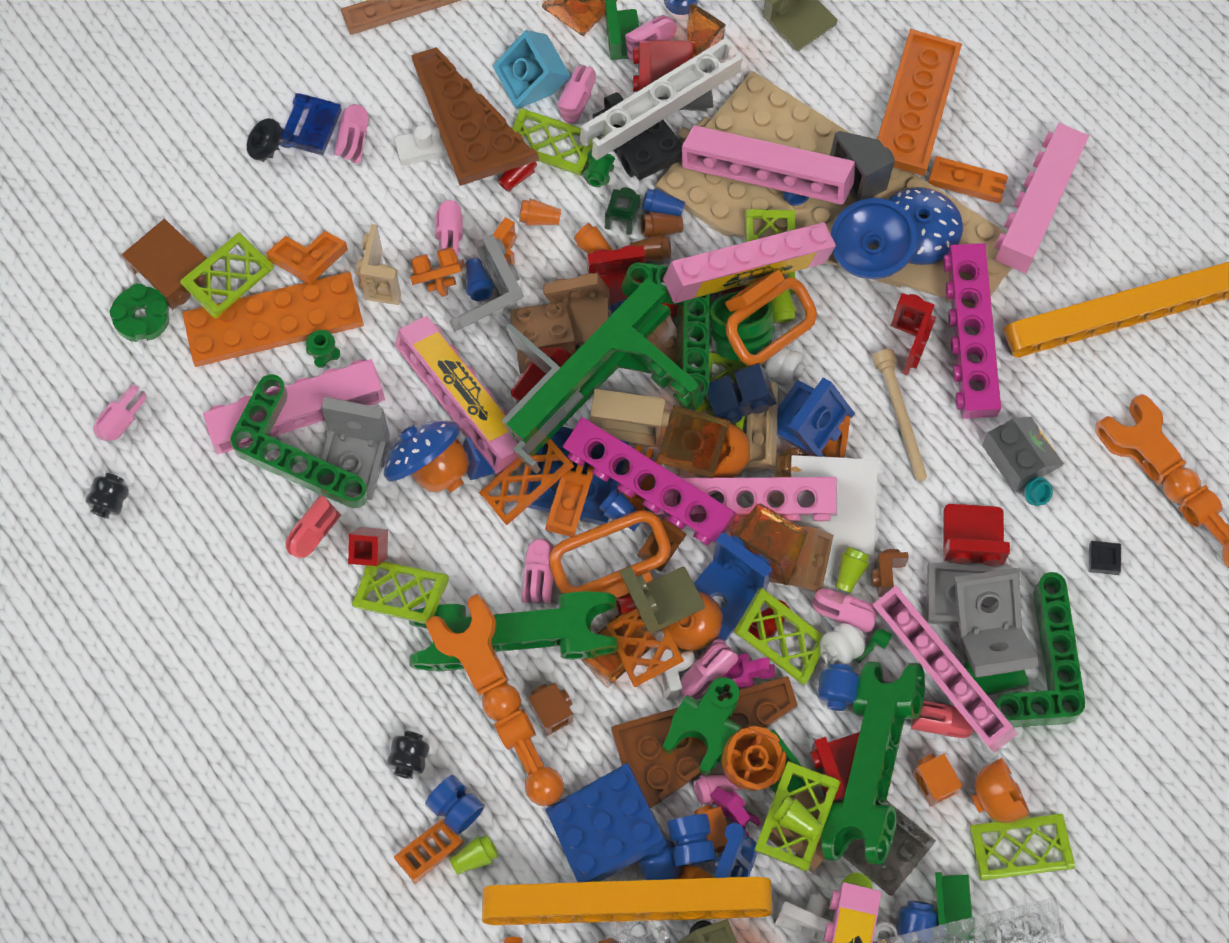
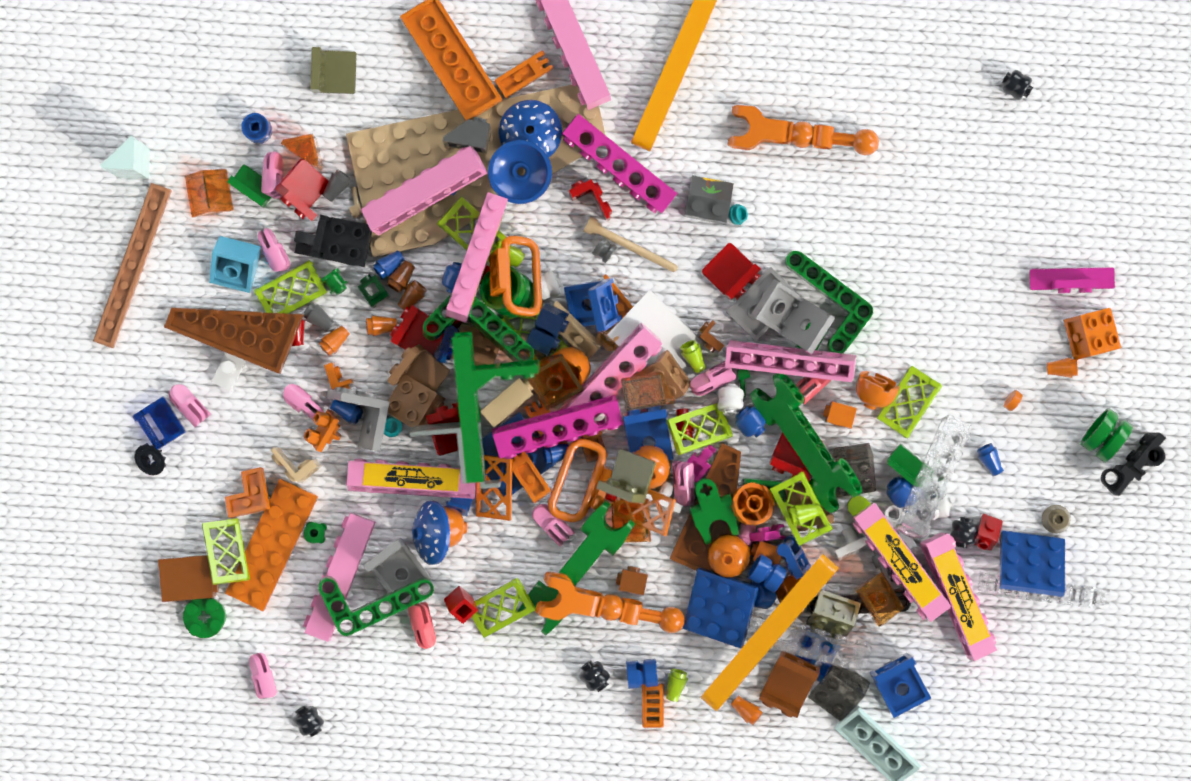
camera: 45 degrees left, 20 degrees up
(497, 335) = (392, 427): none -> teal plate
(548, 179) = (316, 315): none -> dark grey cone
(645, 109) = (326, 227): white piece -> none
(672, 785) = (729, 555): none -> orange cylinder
(873, 391) = (604, 249): none -> dark grey wheel
(1105, 557) = (802, 212): black tile -> none

